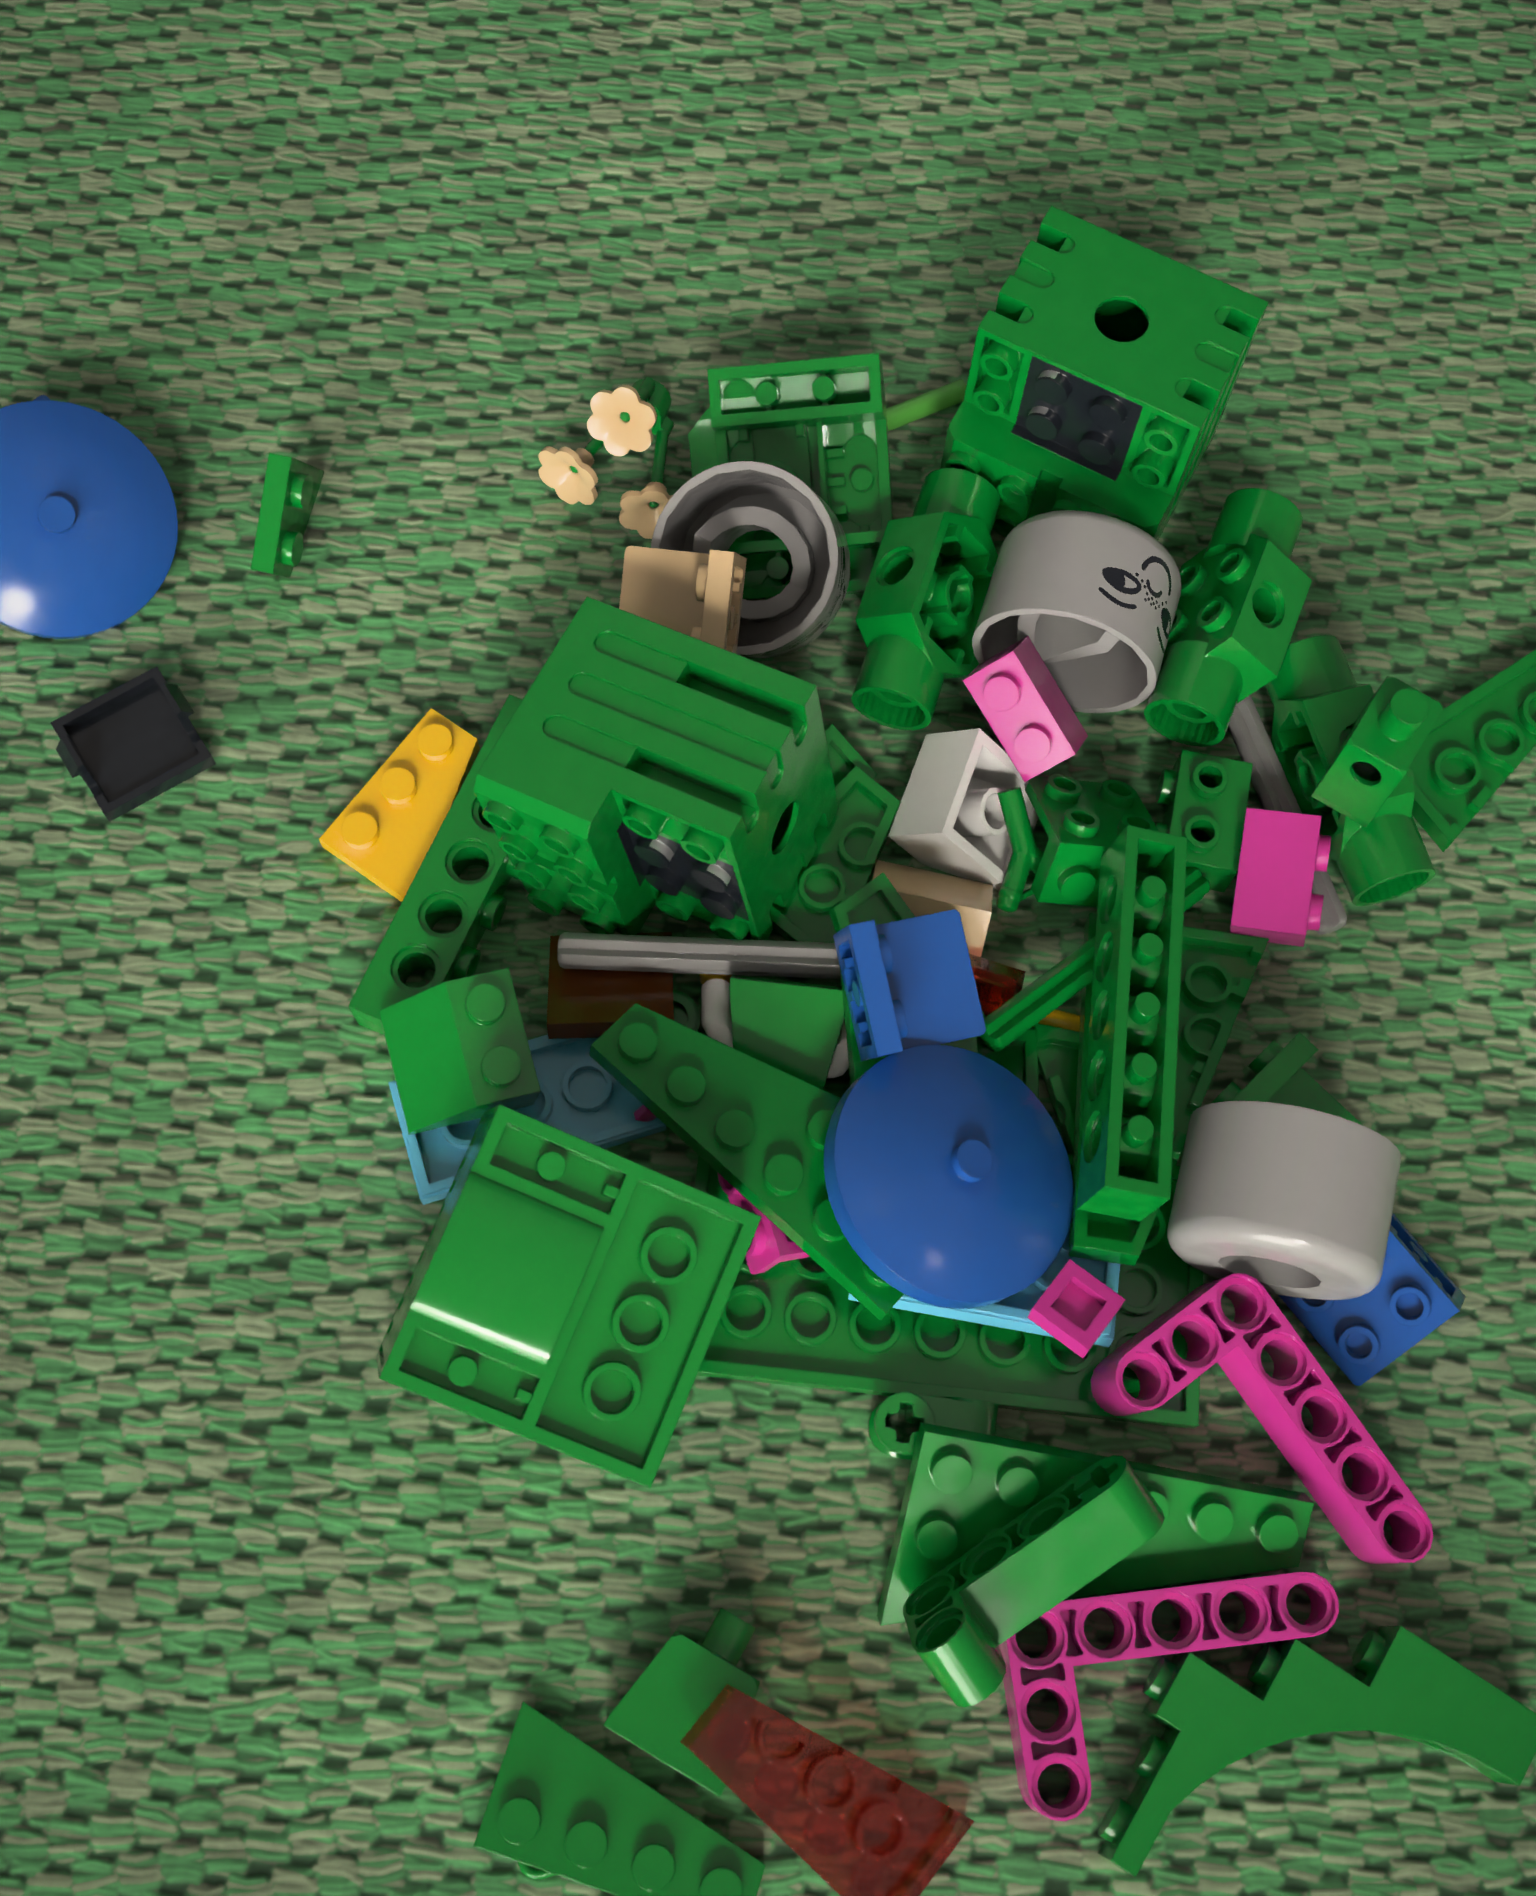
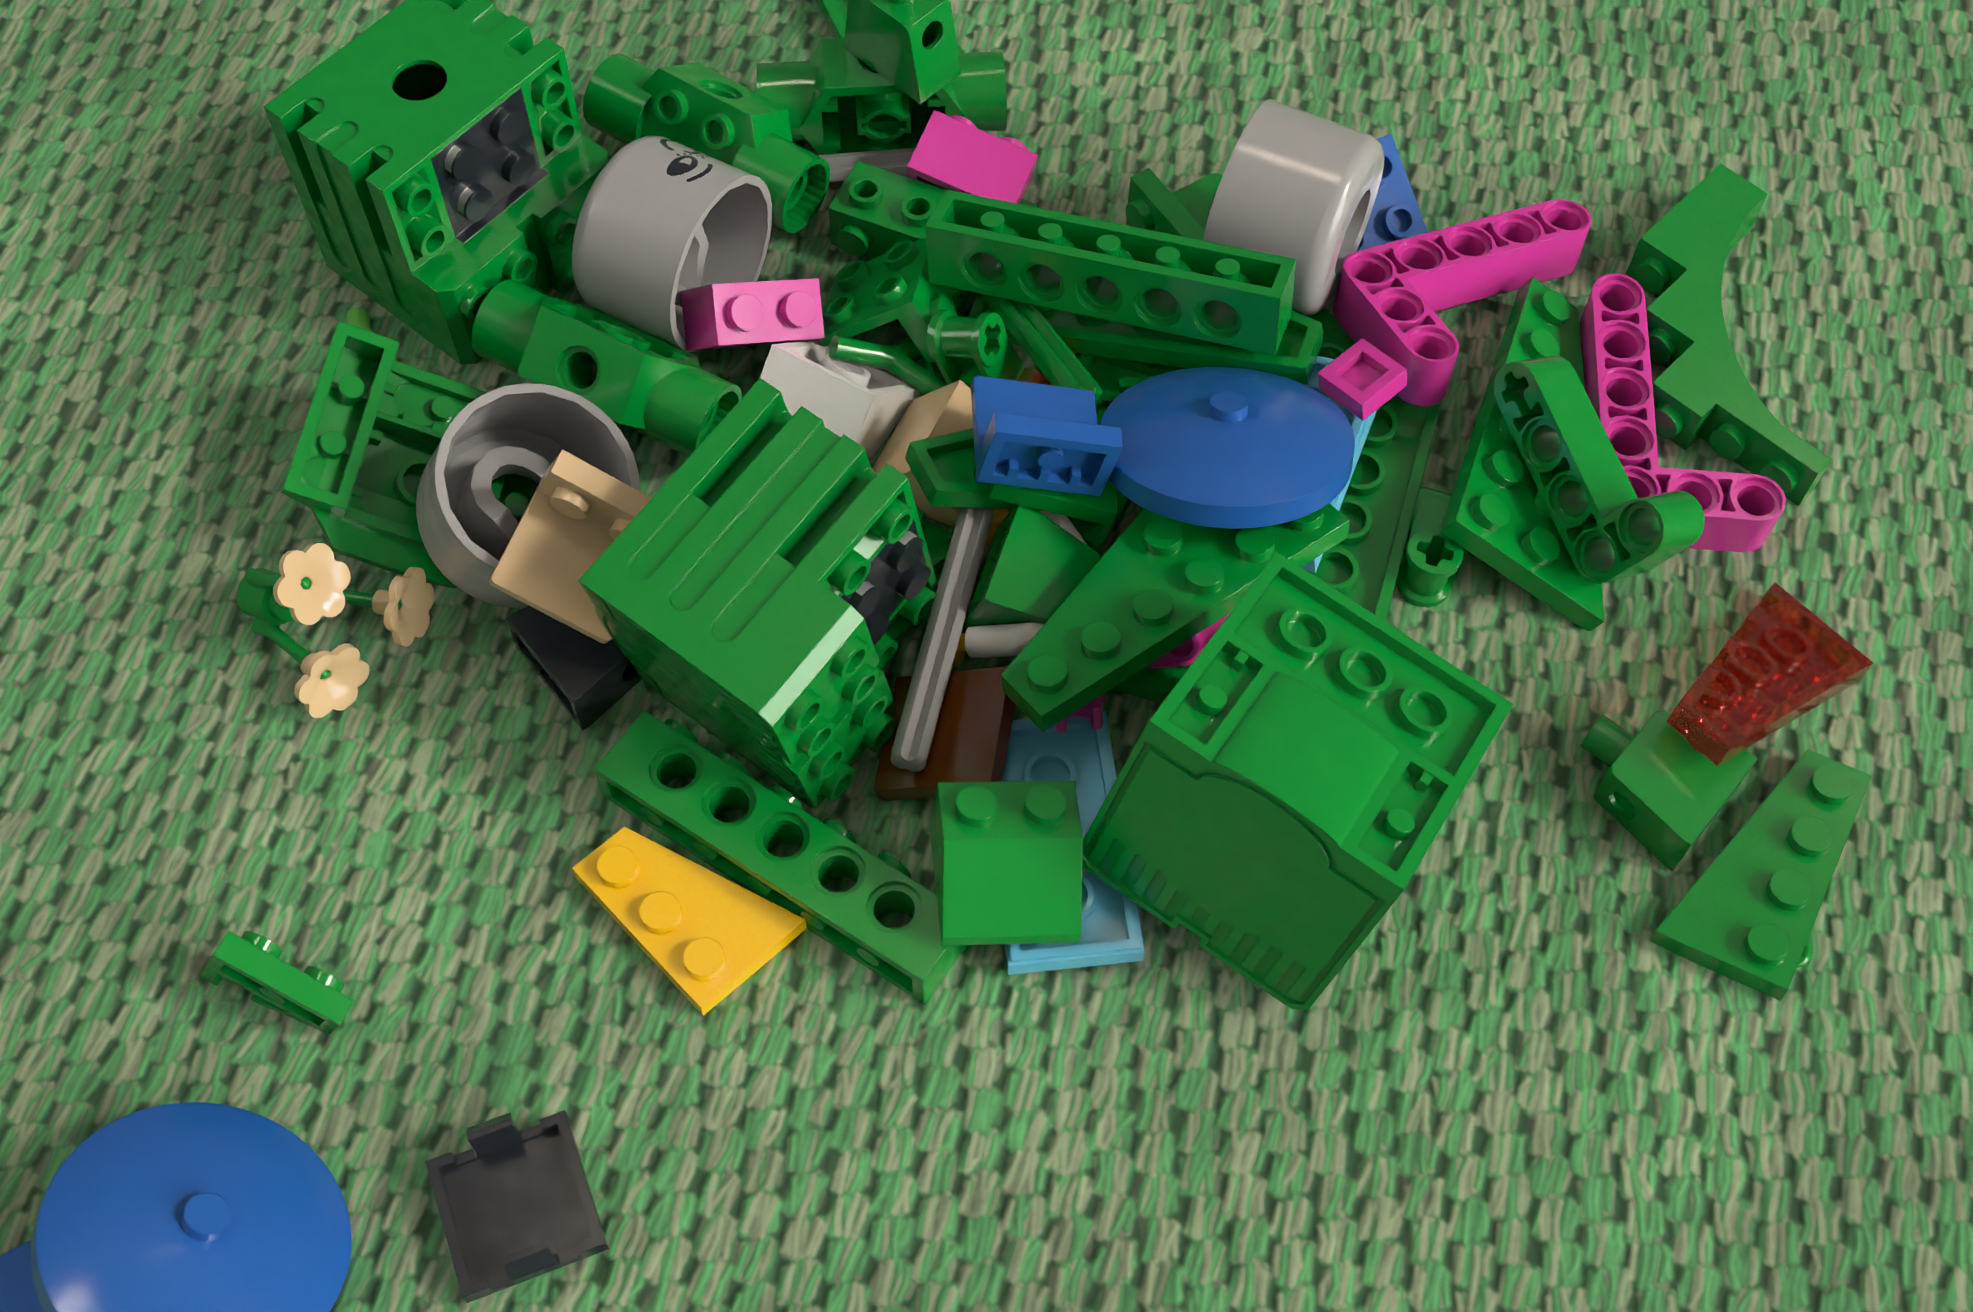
camera: 75 degrees left, 10 degrees down
(1036, 922) = (971, 347): none -> green piece

